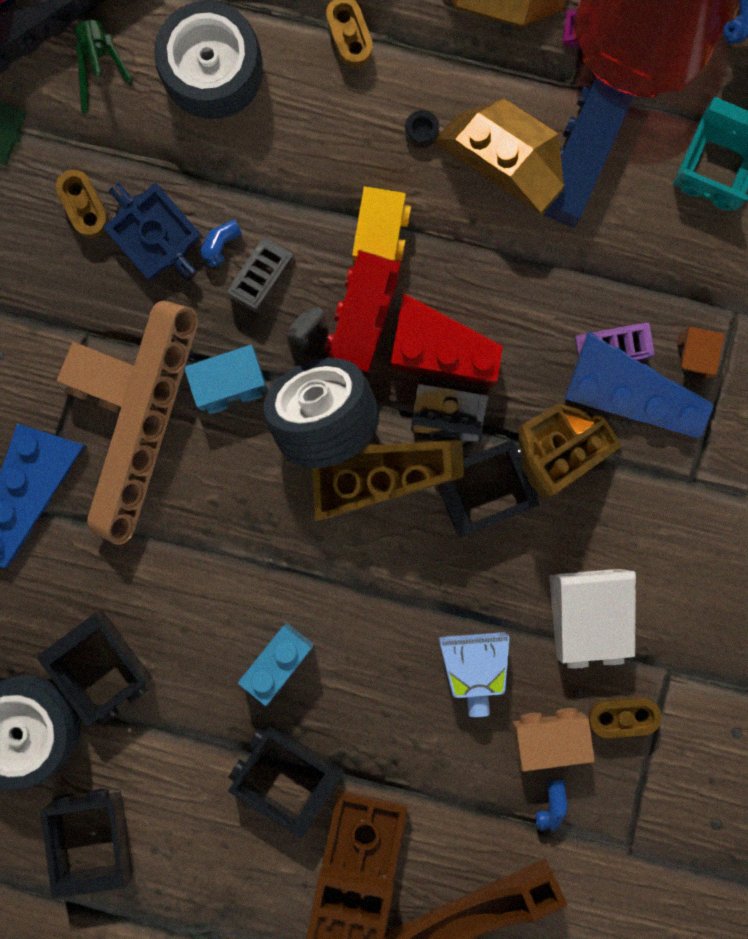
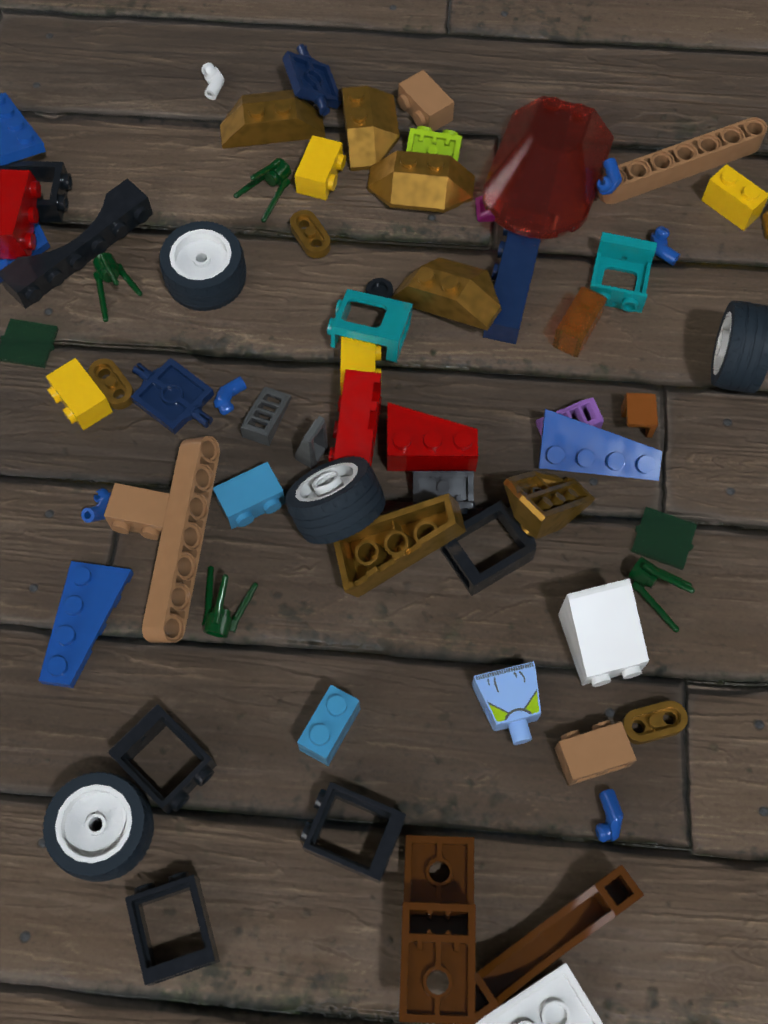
camera: 10 degrees left, 20 degrees down
(41, 213) = (79, 394): none -> yellow brick
(51, 369) = (97, 512): none -> blue arm
(171, 521) = (218, 620): none -> dark green plant
(428, 189) = (391, 331): none -> teal window
(657, 216) = (579, 321): none -> clear orange brick
(659, 550) = (647, 574): none -> dark green plant
(688, 506) = (664, 538): none -> clear green piece

